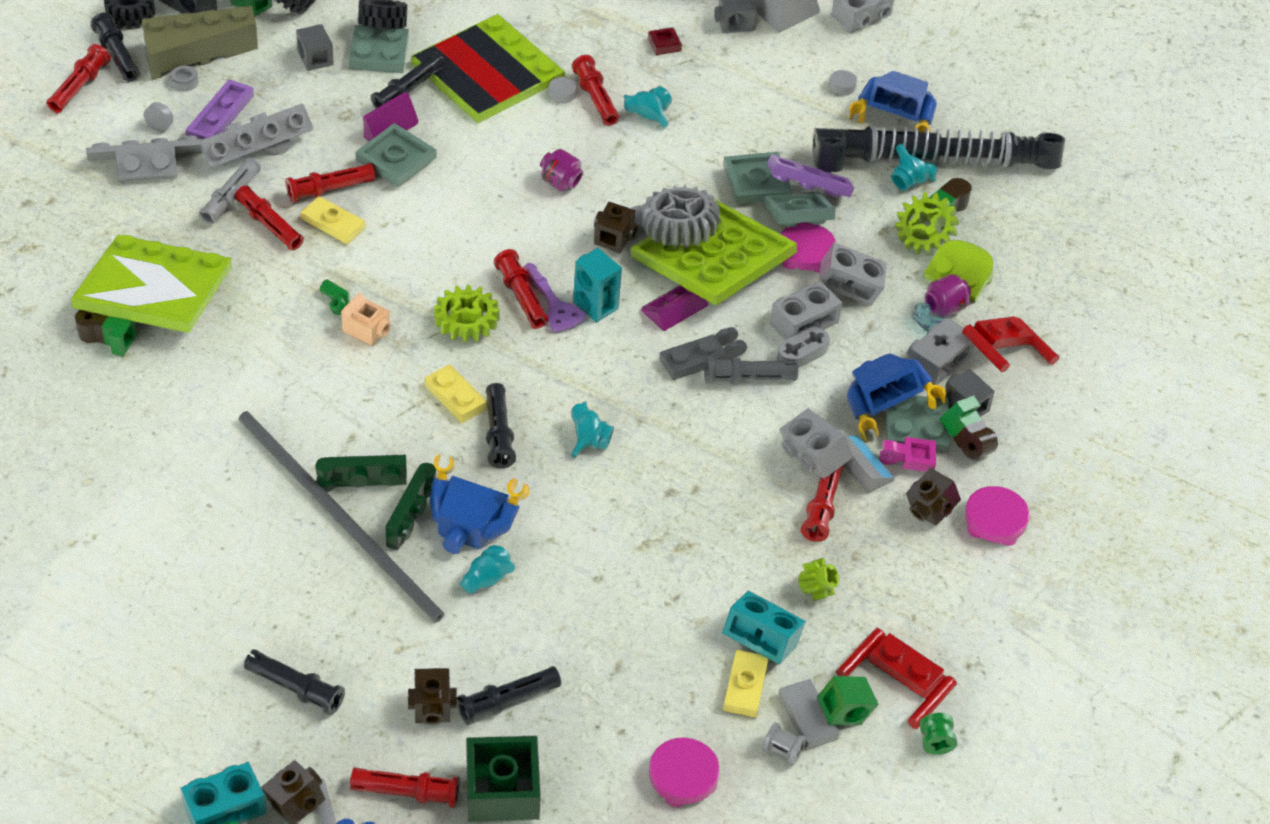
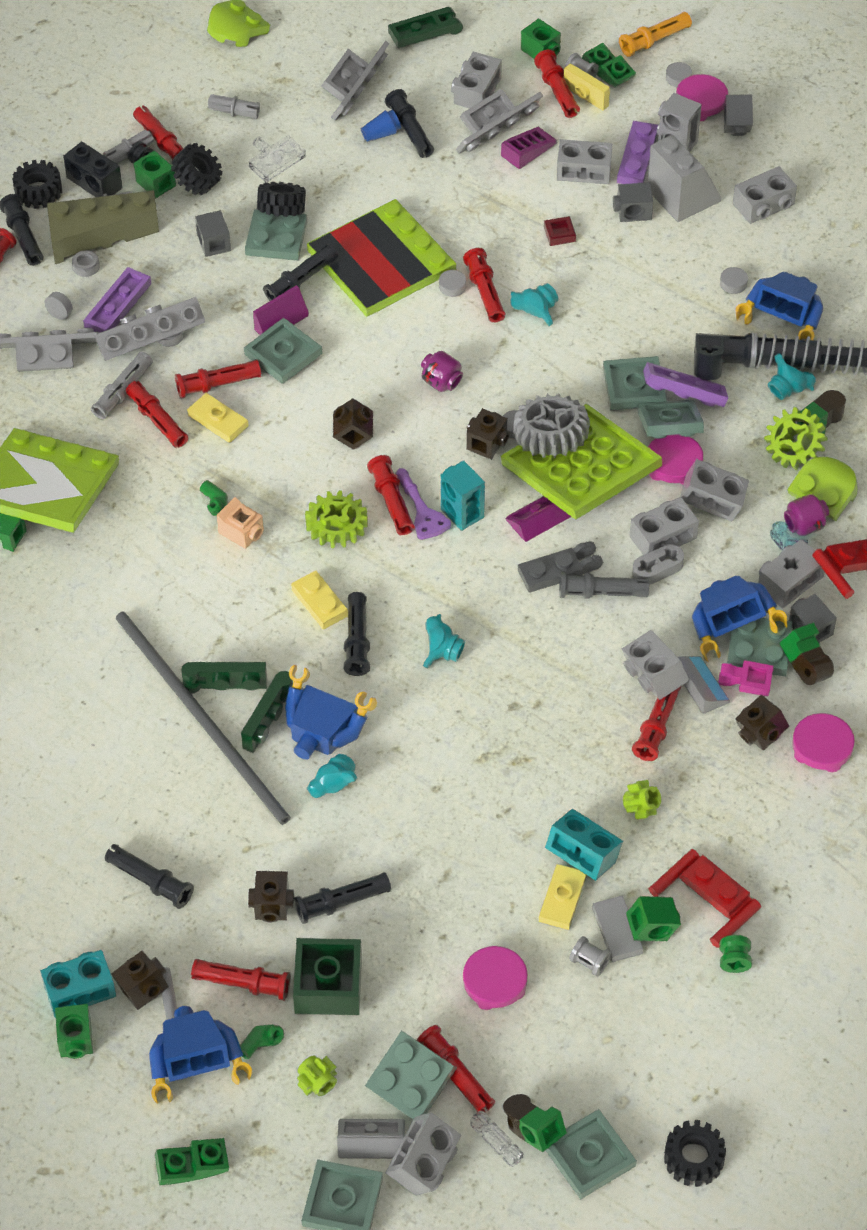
camera: 10 degrees right, 5 degrees up
(475, 220) = (353, 423): none -> dark brown brick

